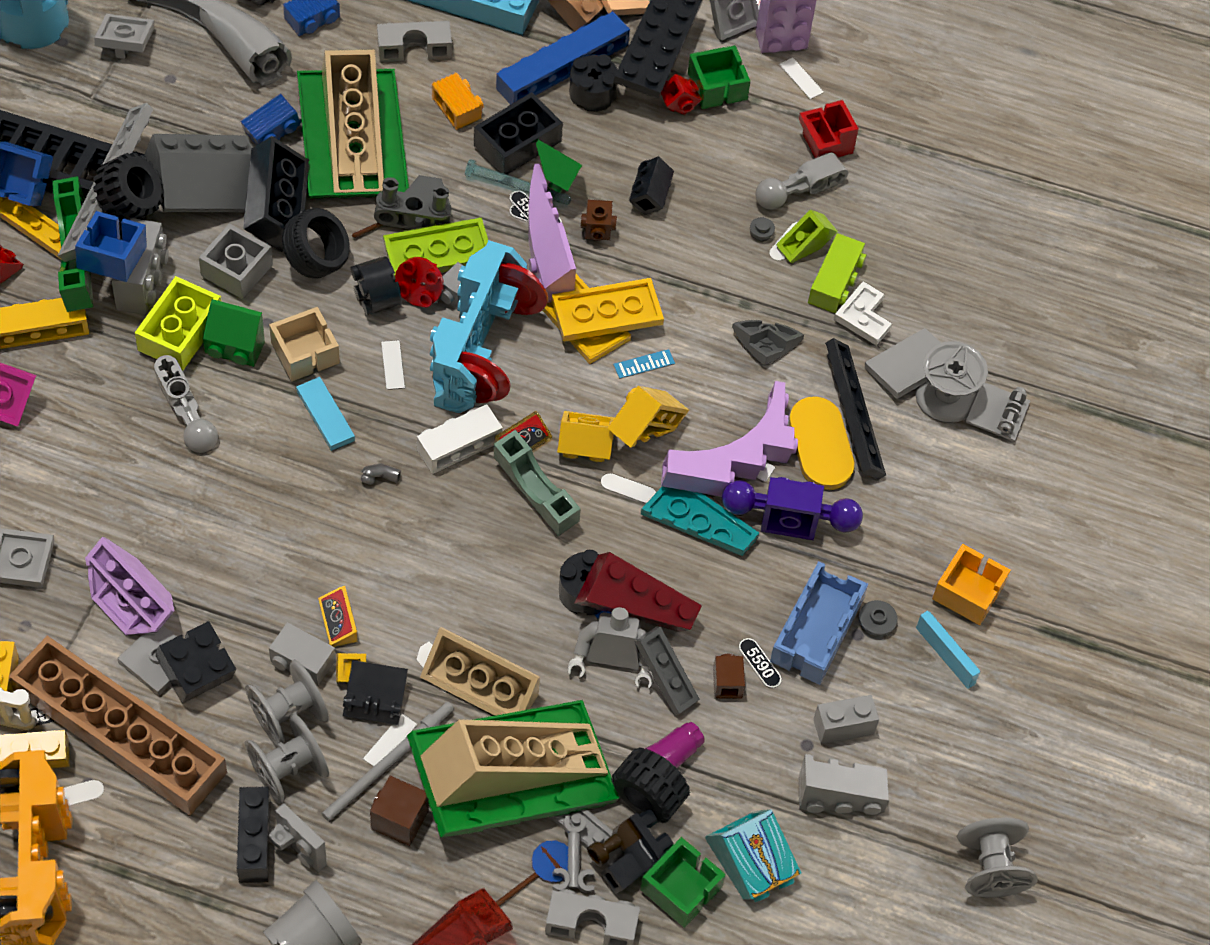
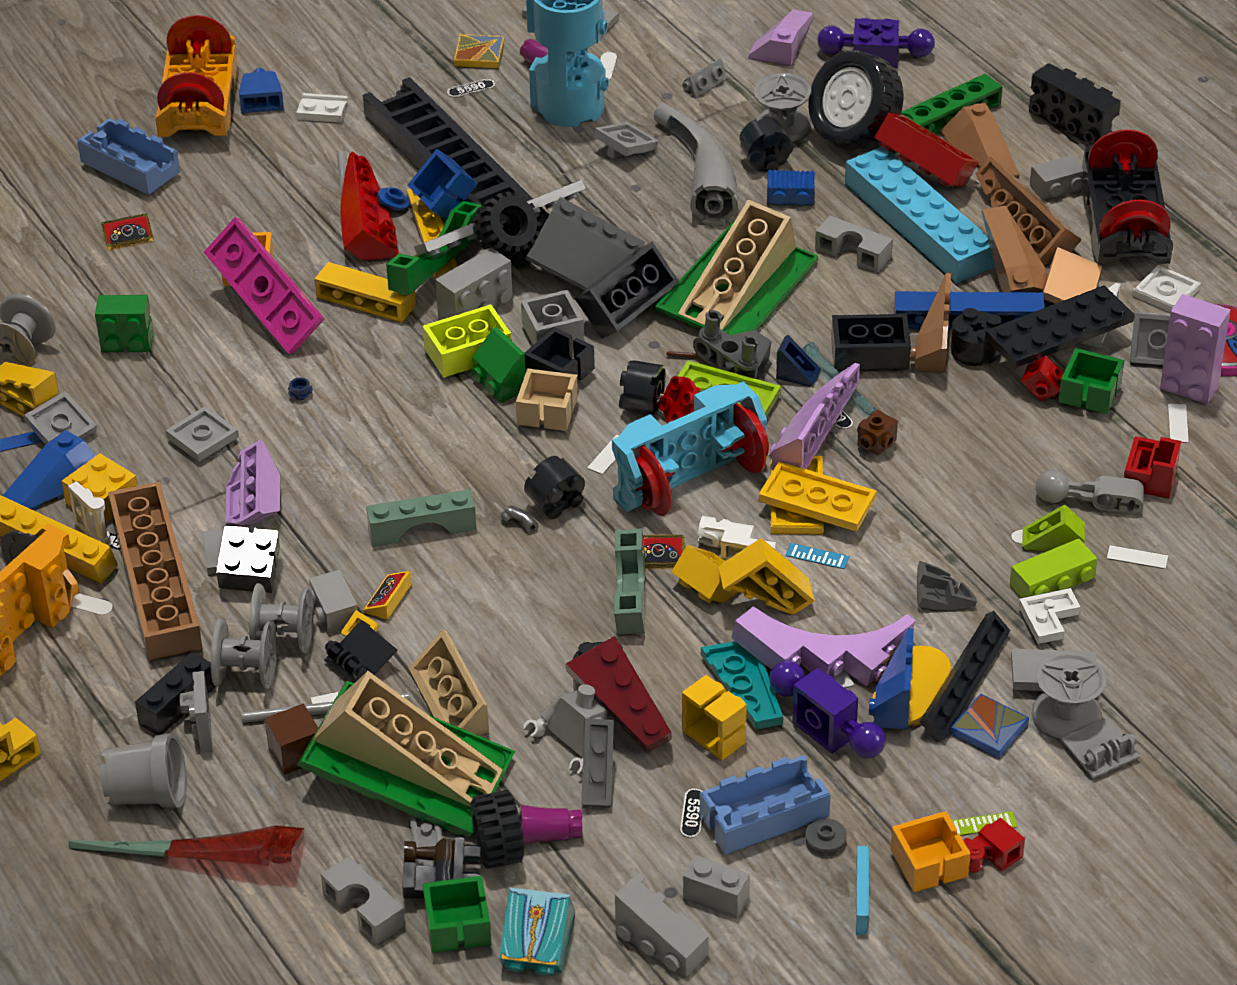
camera: 45 degrees right, 15 degrees down
(66, 452) = (299, 388): none -> dark blue plate
(102, 250) = (455, 251): blue piece -> none
(199, 434) = (423, 382): light grey beam -> none
(271, 119) = (679, 244): blue brick -> none
(278, 302) = (555, 354): none -> black piece
(282, 542) = (392, 519): none -> sand green arch
(325, 413) = (520, 458): medium azure tile -> none
(331, 233) = (637, 318): black tyre -> none
(393, 427) = (555, 486): none -> black brick
(457, 100) = (847, 296): light orange brick -> none
(458, 438) = (597, 522): white brick -> none
(473, 189) = (794, 364): none -> dark blue slope
(544, 860) = (375, 848): blue piece -> none
(557, 167) = (873, 374): green slope -> none
(566, 98) = (932, 338): none -> medium nougat wedge
(572, 878) = (384, 865): light grey bar -> none
(577, 390) = (726, 535): none -> white plate
(627, 487) = (709, 630): white sticker -> none
(651, 185) = (953, 428): black brick -> none
(716, 569) = (714, 717): none -> yellow piece
(728, 676) = (650, 802): reddish brown brick -> none
(762, 228) = (1021, 510): dark grey plate -> none
(830, 455) = (893, 690): none -> blue wedge
(875, 221) = (1137, 556): none -> white sticker
(906, 441) = (989, 725): none -> tile
(972, 530) = (974, 824): none -> lime sticker
(1005, 544) = (998, 844): none -> red brick

